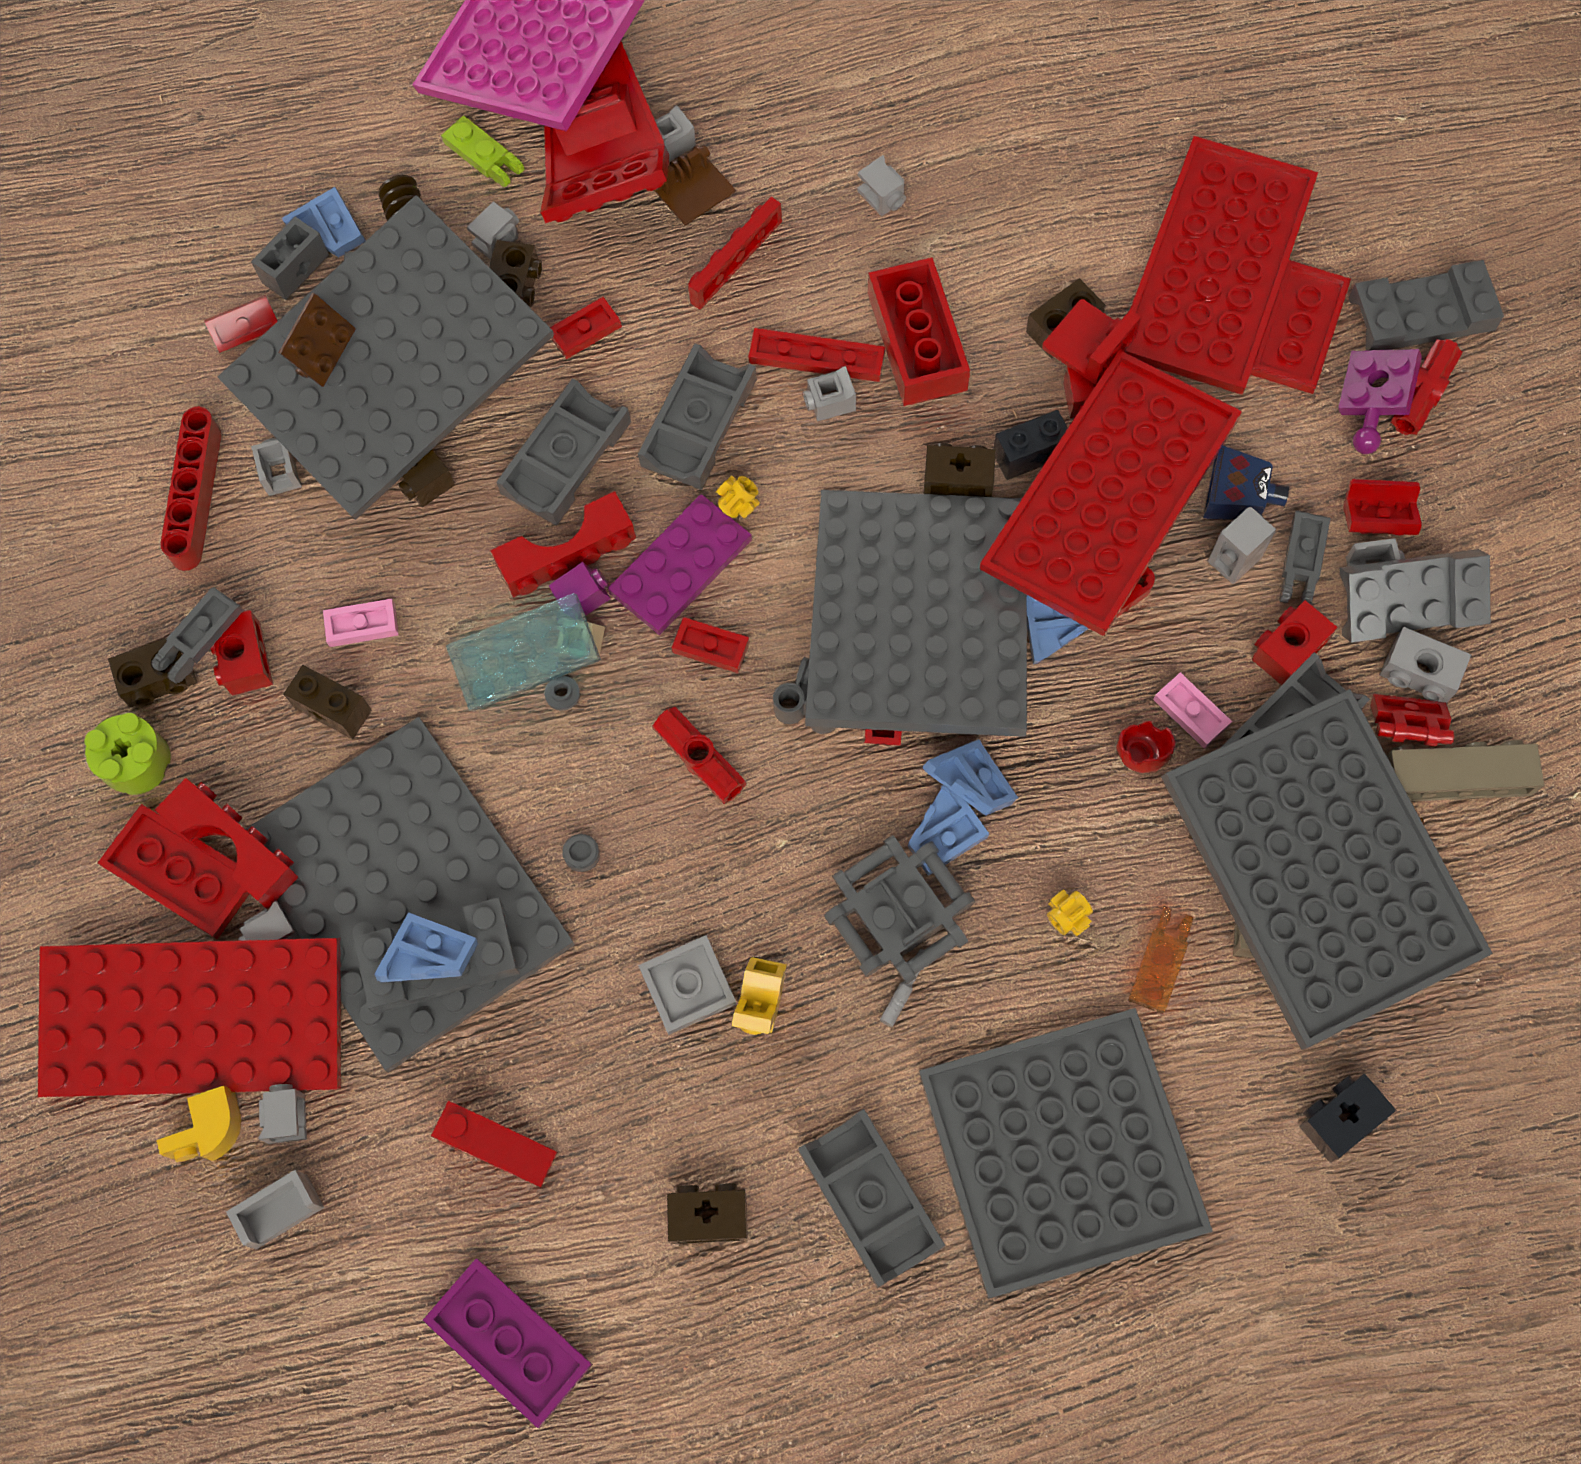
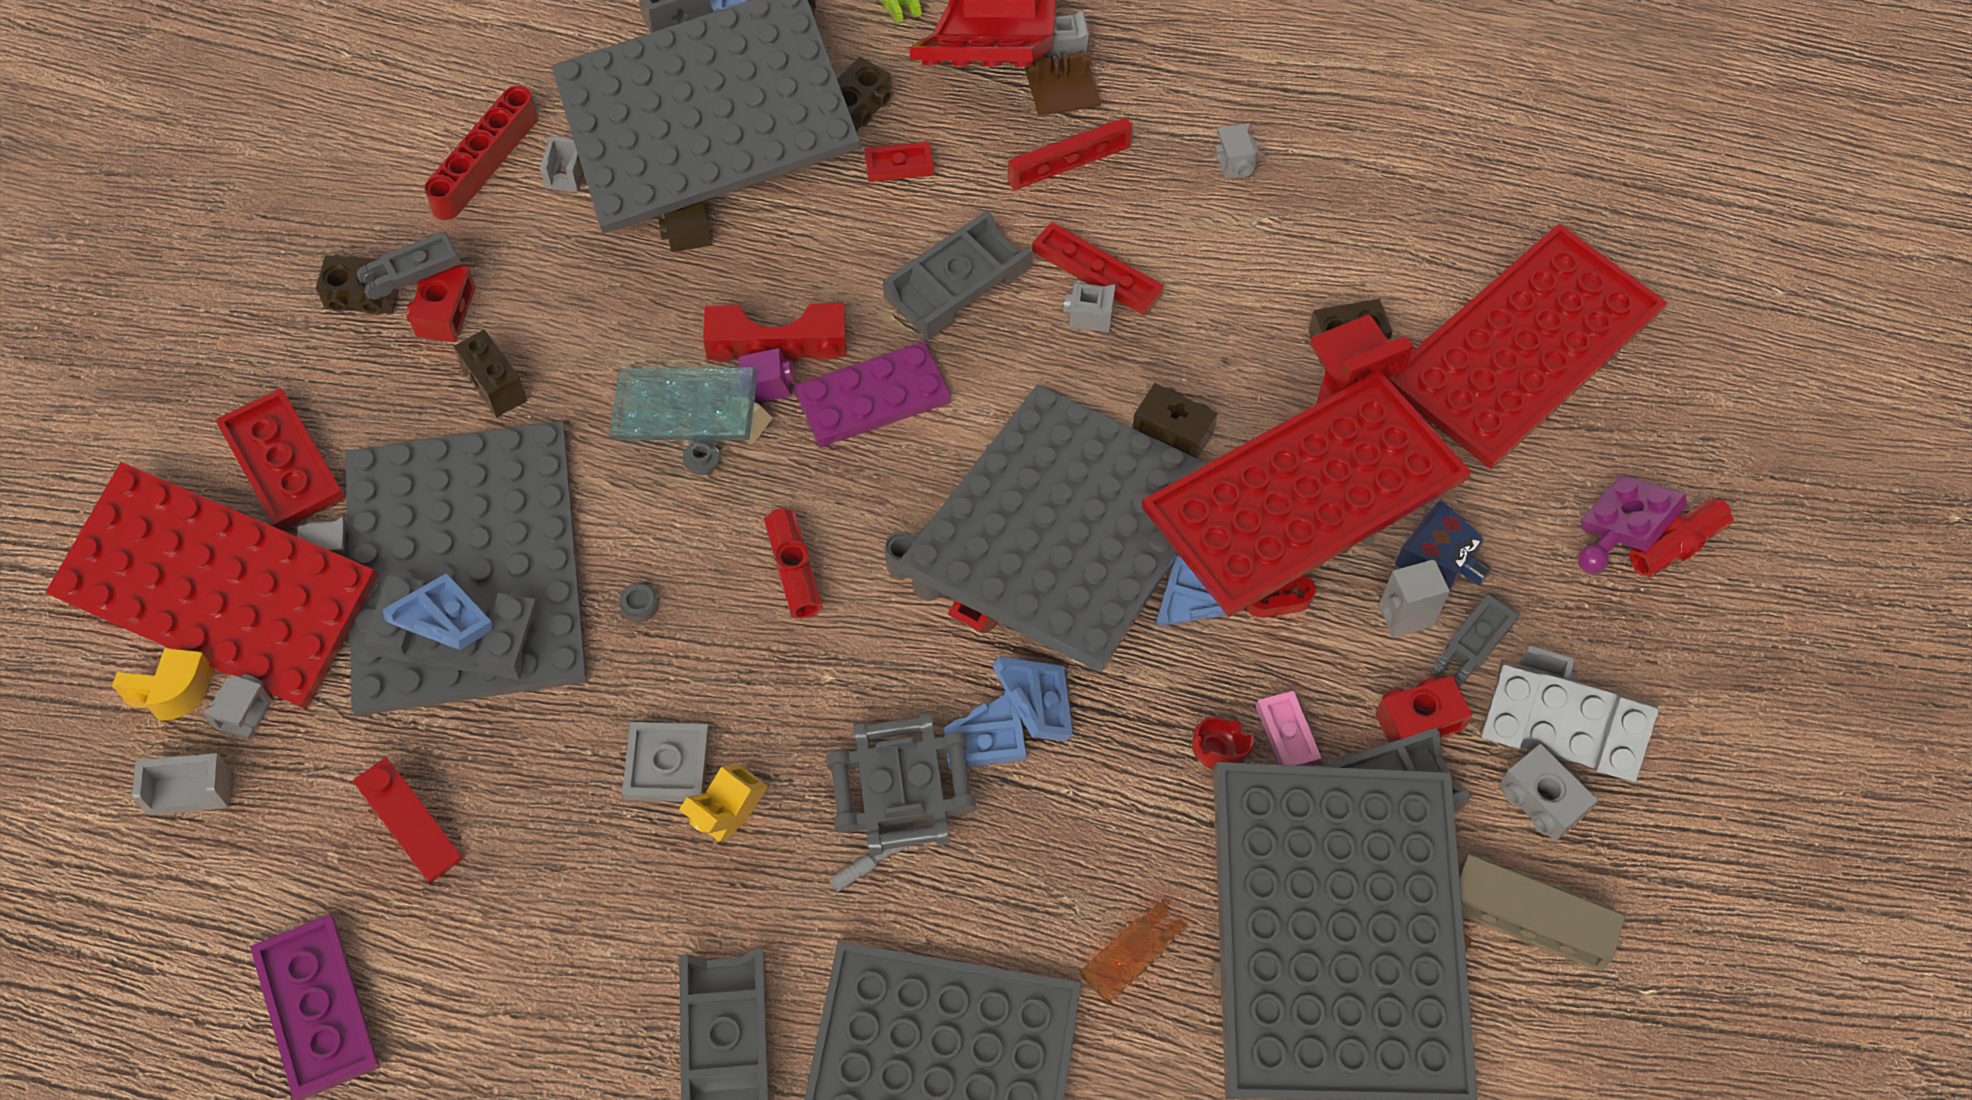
camera: 20 degrees right, 10 degrees down
(127, 754) = (295, 341): lime brick -> none
(241, 323) = (596, 36): plate -> none
(257, 869) = (341, 482): red arch -> none
(317, 340) = (645, 62): reddish brown hinge -> none
(360, 622) = (559, 321): bright pink plate -> none
(493, 225) = (865, 44): light grey window -> none
(562, 452) = (817, 253): dark grey piece -> none
(688, 1228) = (575, 997): dark brown brick -> none
(710, 645) = (859, 473): red plate -> none
(738, 497) = (955, 356): yellow gear -> none
(918, 331) = (1200, 284): red brick -> none
(1028, 444) = (1246, 419): black brick -> none
(1069, 912) = (1064, 863): yellow gear -> none
(1300, 327) = (1581, 433): red tile -> none
(1382, 507) = (1579, 627): red bracket -> none
(1412, 719) = (1506, 837): red plate -> none
(1428, 307) = (1720, 467): dark grey piece -> none

